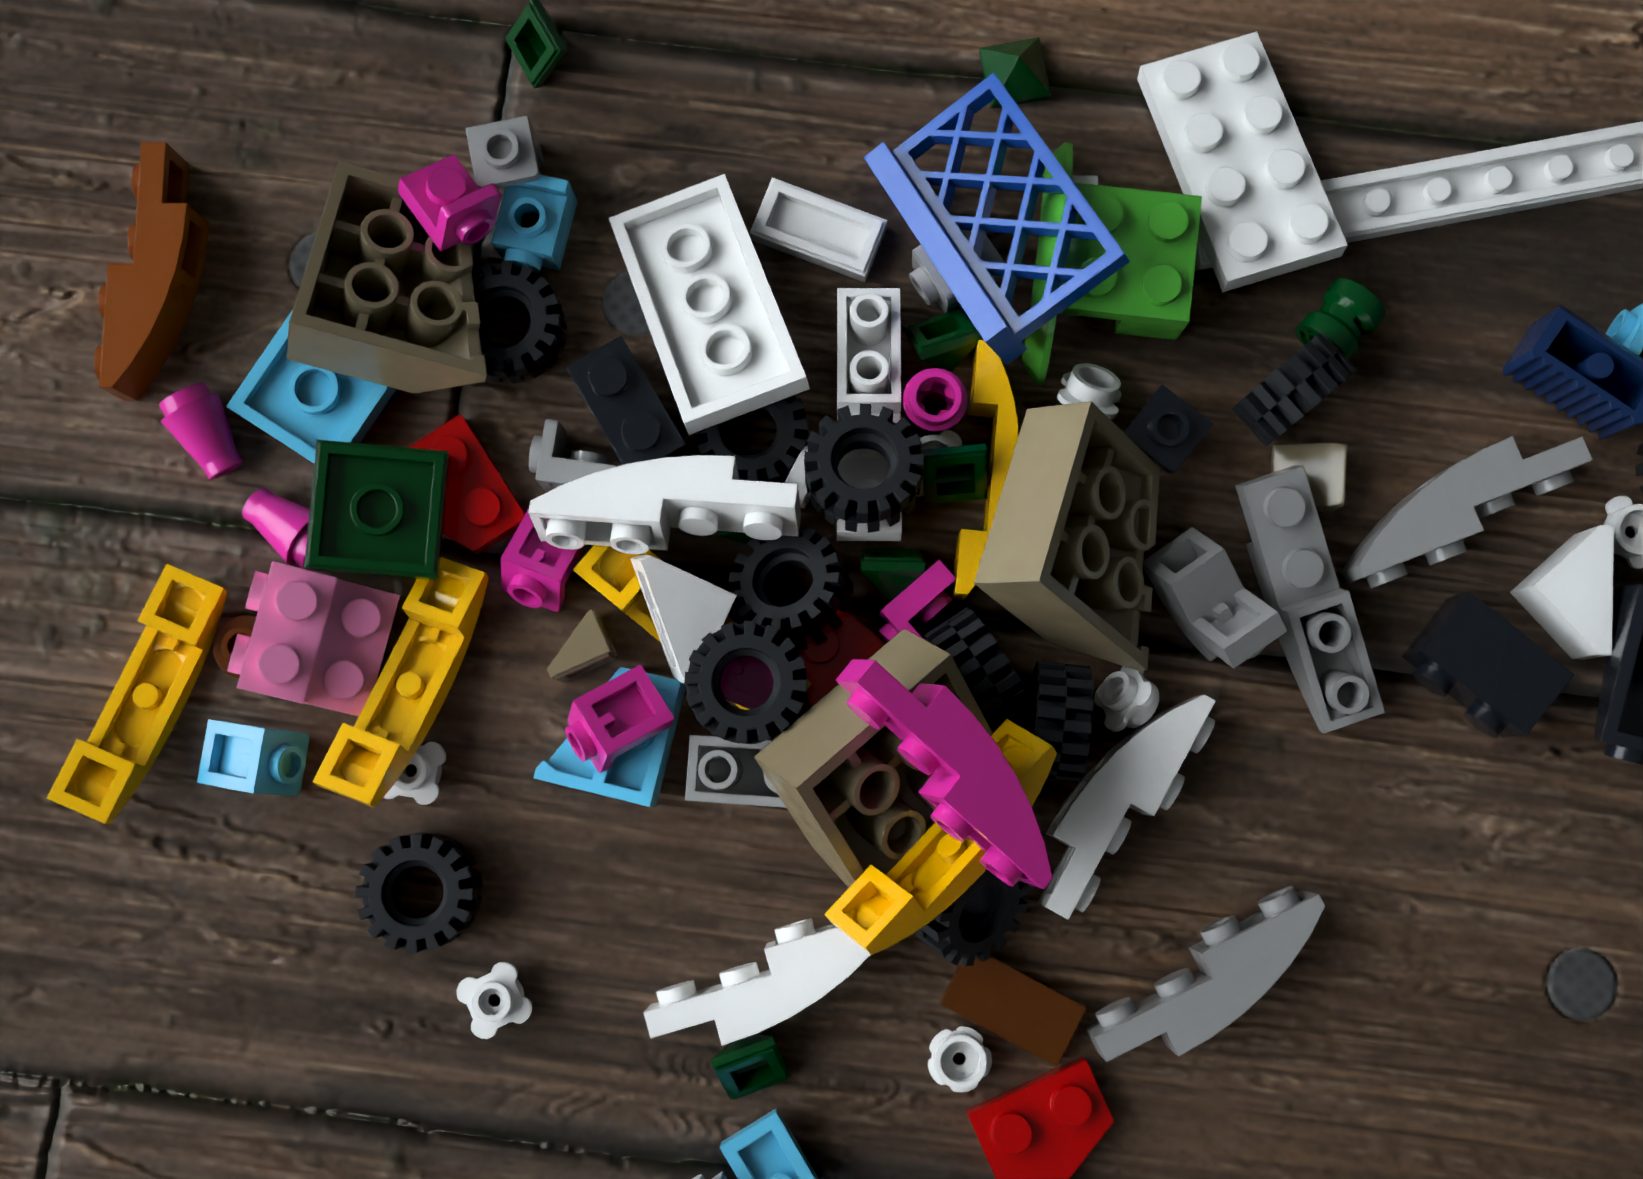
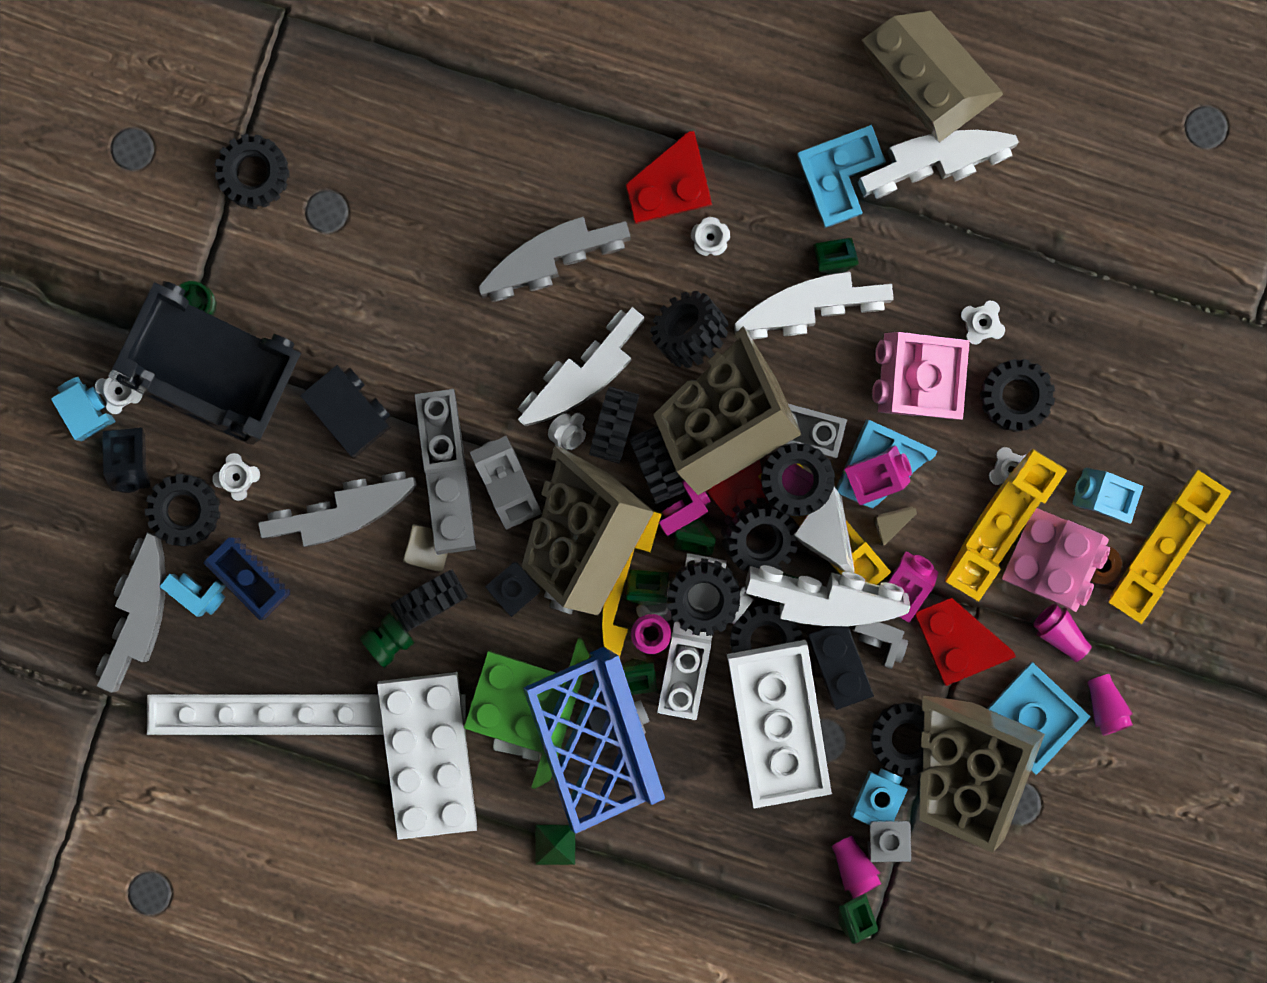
camera: 175 degrees left, 5 degrees up
(152, 298) = (1129, 794): dark orange slope -> none
(377, 510) = (1004, 630): dark green tile -> none
(450, 203) = (928, 813): dark pink bracket -> none
(553, 115) = (855, 868): none -> dark pink cone
(578, 895) = (921, 375): none -> bright pink plate
(818, 229) = (700, 764): white tile -> none
(937, 868) = (692, 360): yellow slope -> none
(972, 780) = (679, 395): dark pink slope -> none
(1014, 1007) = (671, 261): reddish brown tile -> none
(1093, 384) = (550, 625): white plate -> none
(1575, 593) = (283, 447): white slope -> none

